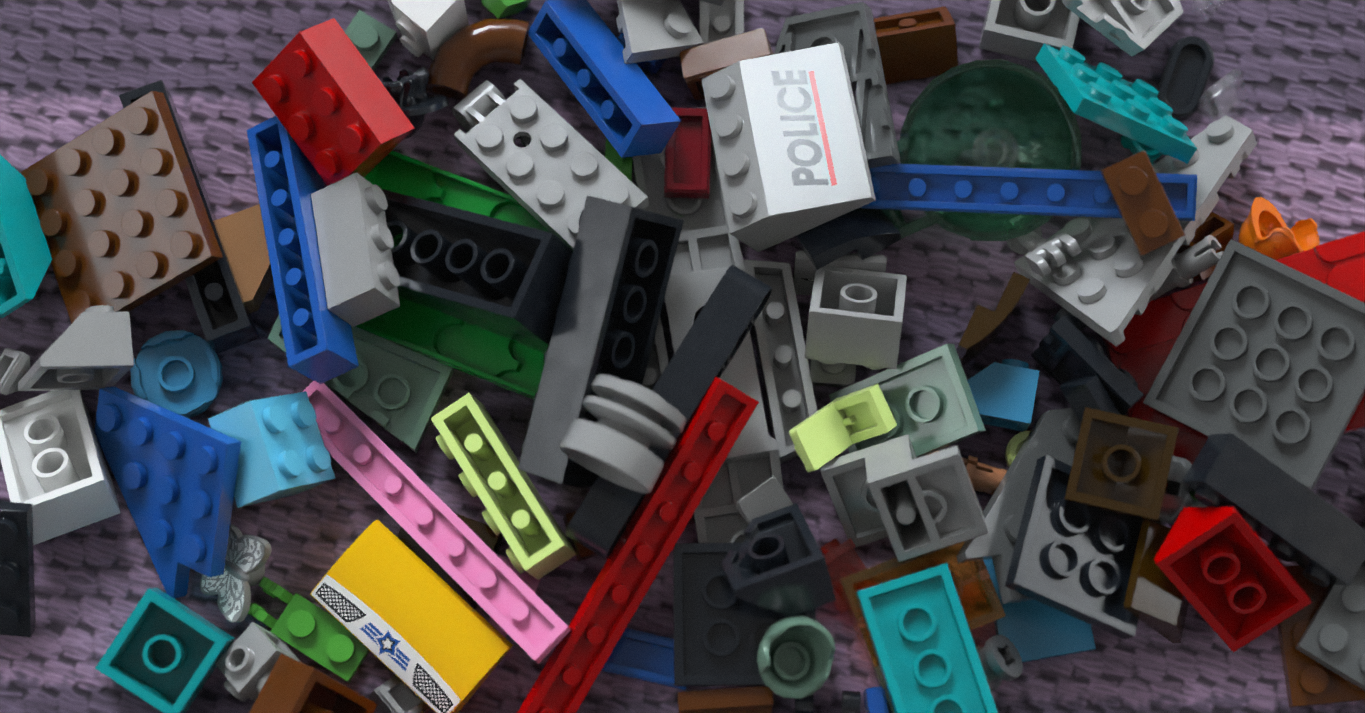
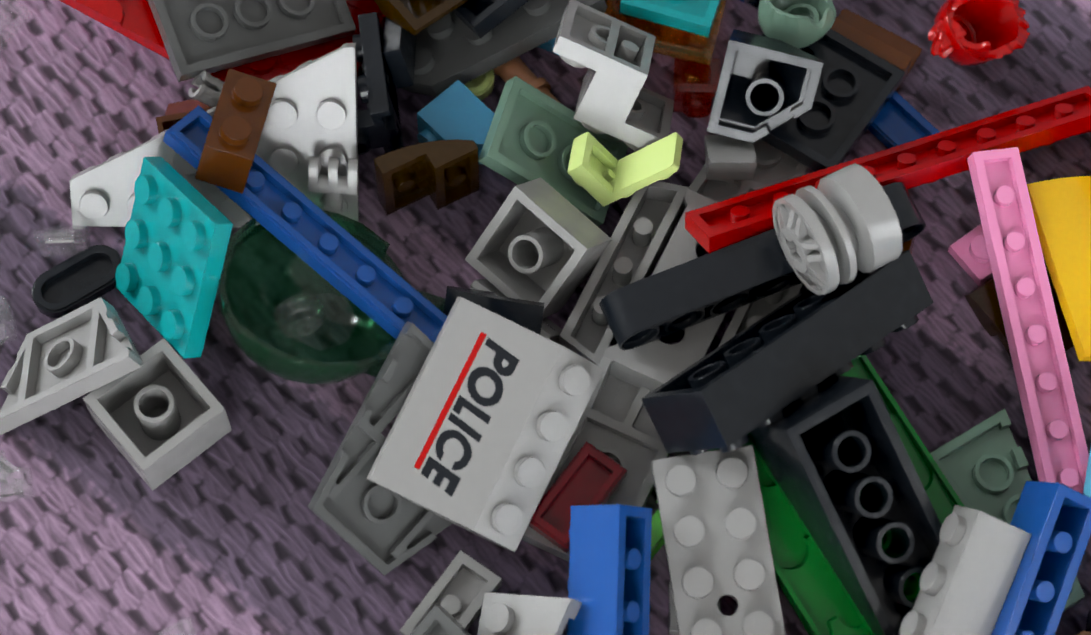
camera: 145 degrees left, 10 degrees down
(507, 492) = (949, 330): yellowish green brick -> none
(717, 55) = (476, 556): slope -> none
(917, 44) = (281, 470): reddish brown panel -> none
(1269, 235) = (131, 86): orange helmet -> none

